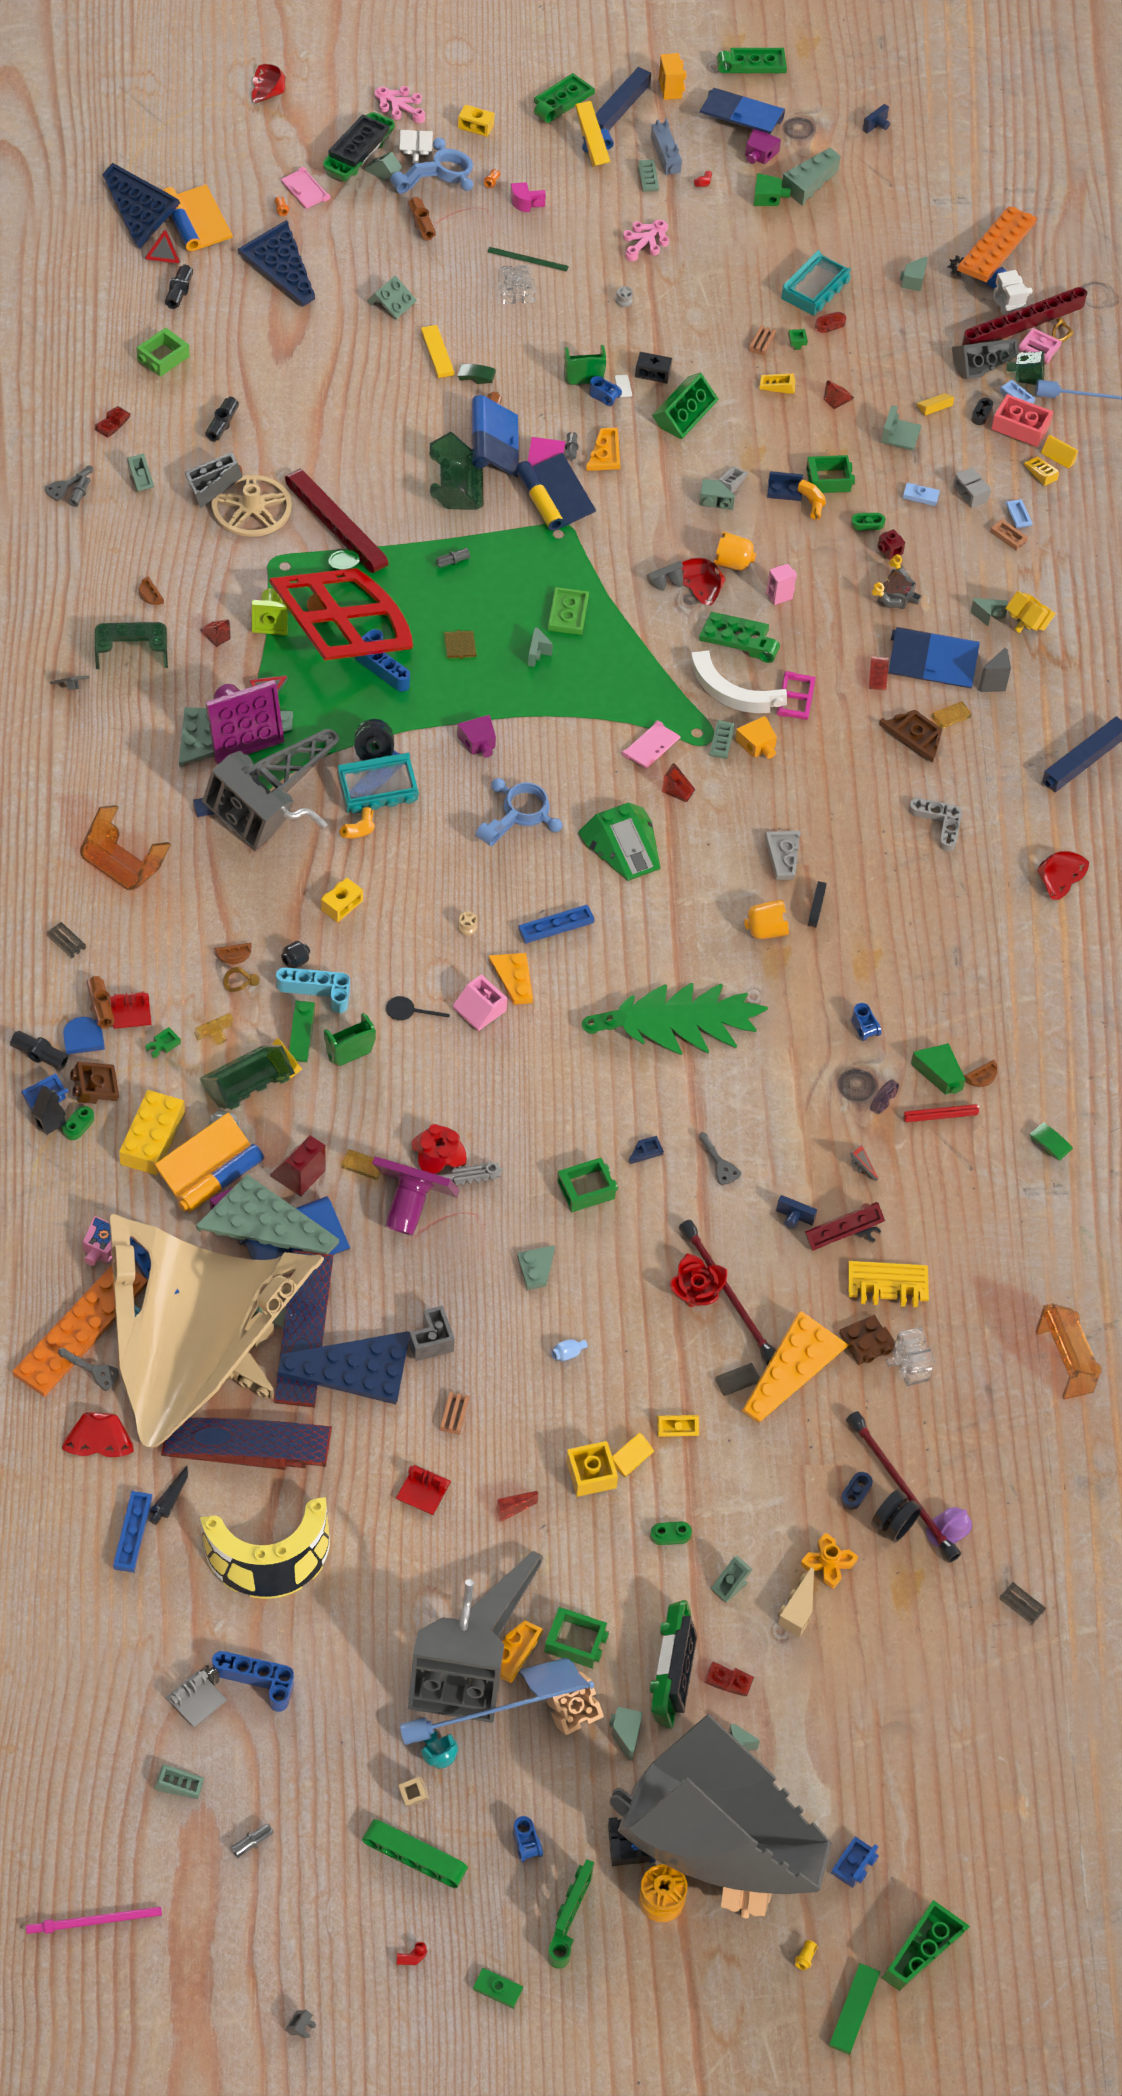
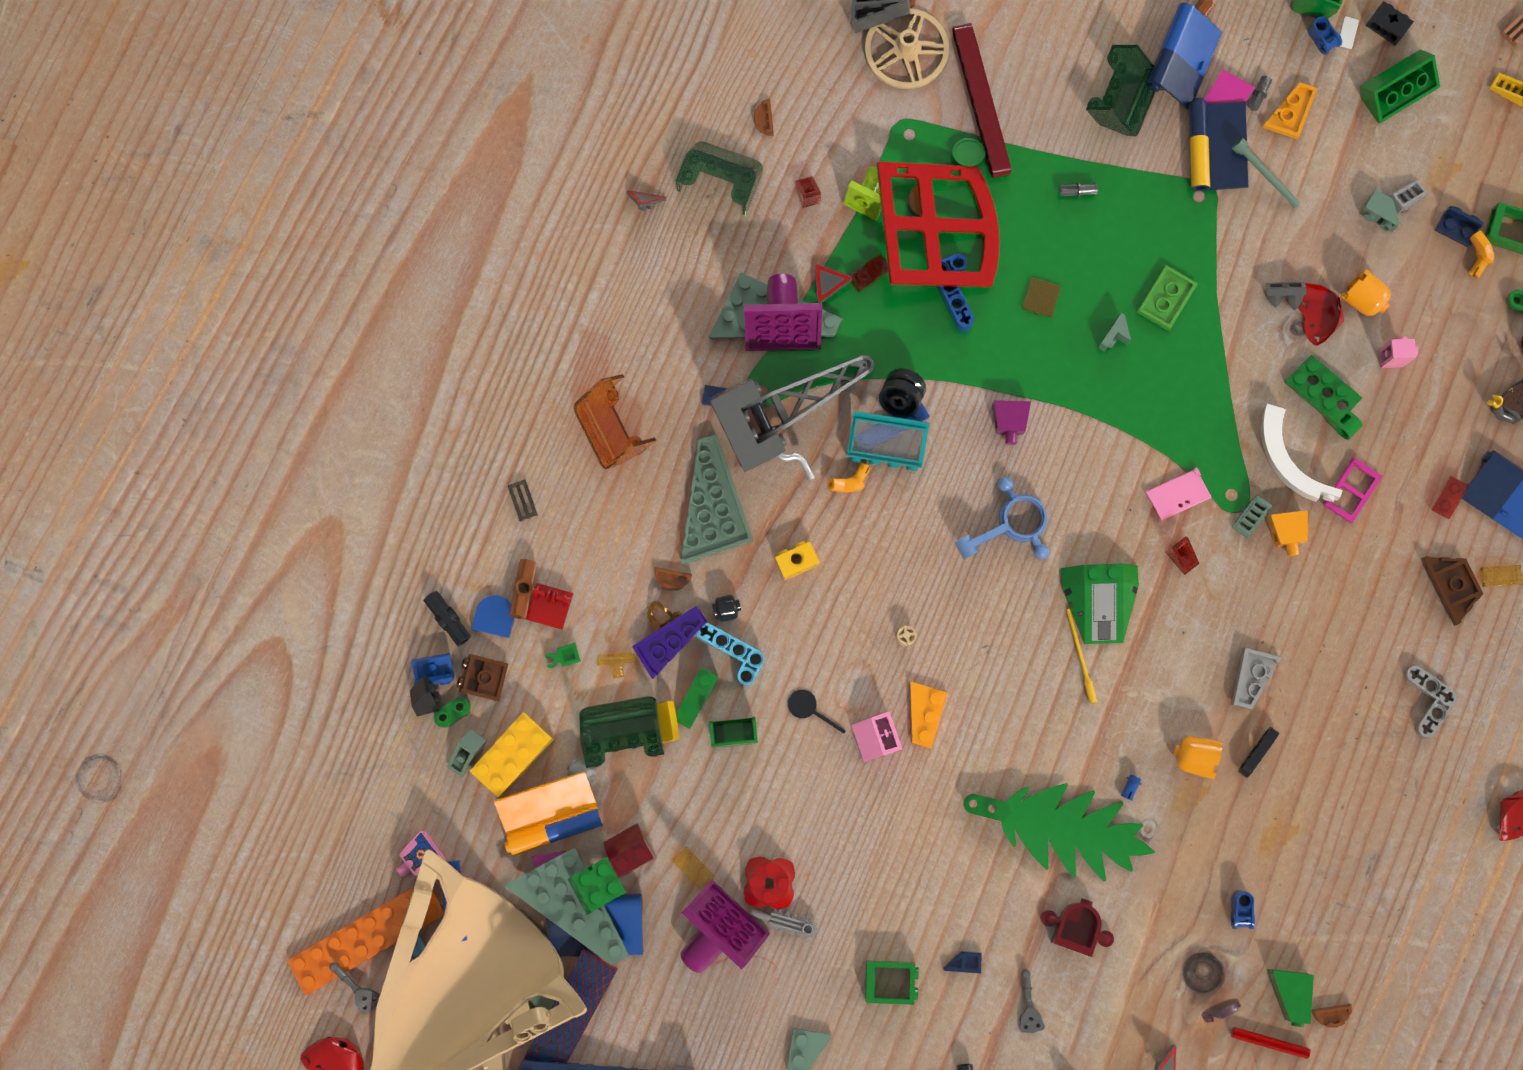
camera: 30 degrees right, 25 degrees up
(107, 1146) = (466, 752): none -> sand green slope
(247, 887) = (714, 510): none -> sand green wing
(252, 999) = (664, 644): none -> dark purple wing
(283, 1187) = (596, 885): none -> green piece
(301, 672) = (869, 273): none -> clear red slope
(556, 924) = (991, 671): blue plate -> none
(576, 483) = (1242, 147): none -> sand green piece
(645, 905) = (1087, 682): none -> yellow piece
(722, 967) = (1131, 787): none -> blue pin
(731, 1086) = (1078, 928): none -> dark red piece

